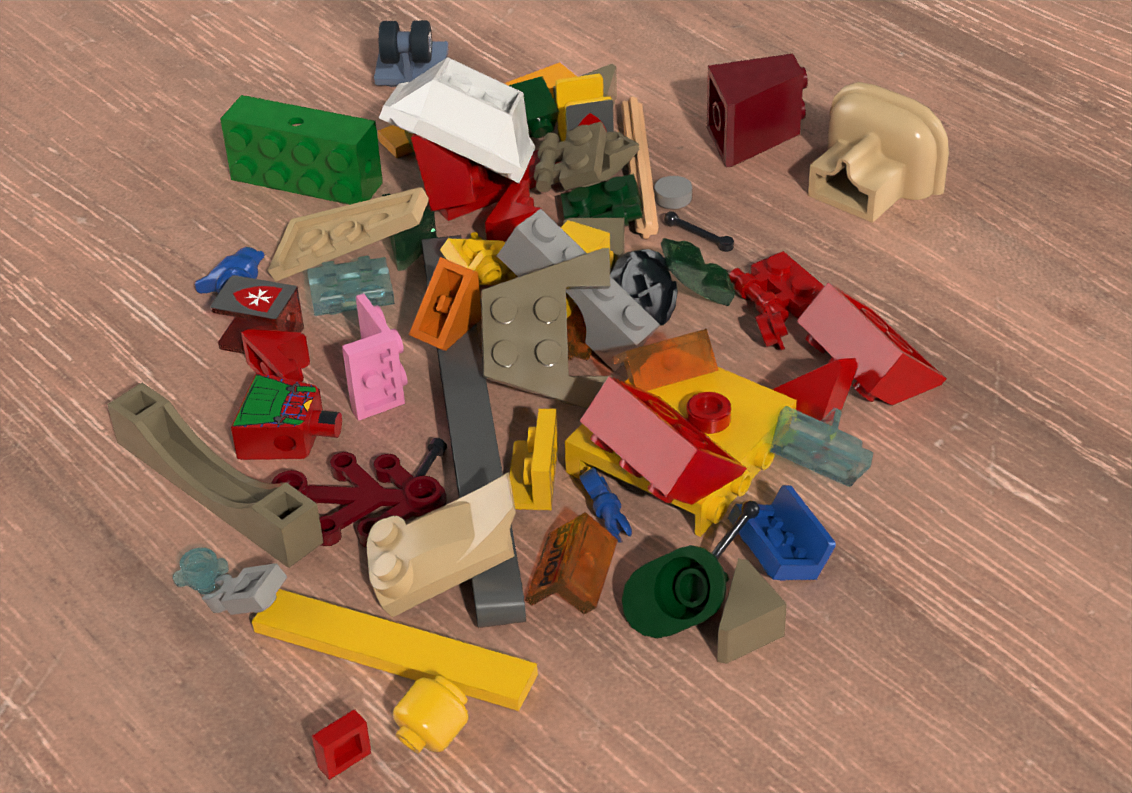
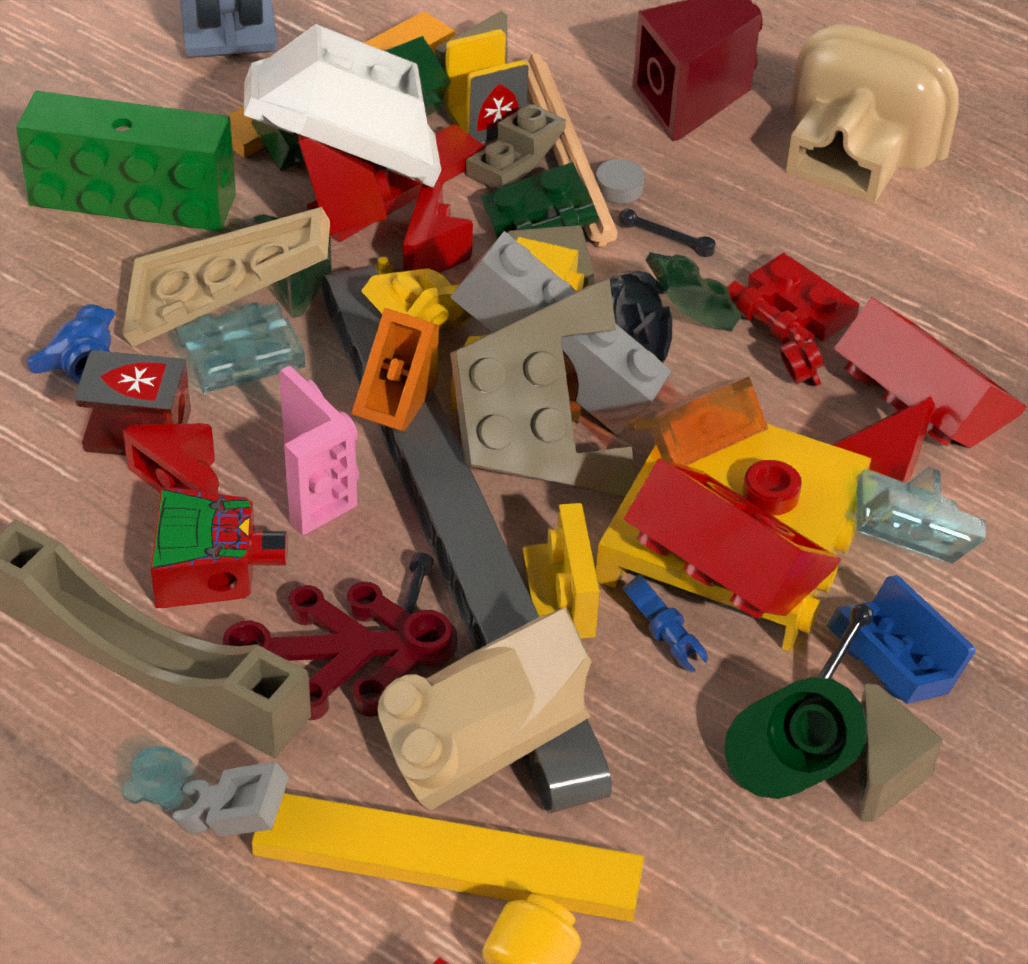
camera: 15 degrees left, 5 degrees up
(574, 564) = (647, 709): clear orange panel -> none
(580, 157) = (500, 141): dark tan plate -> none

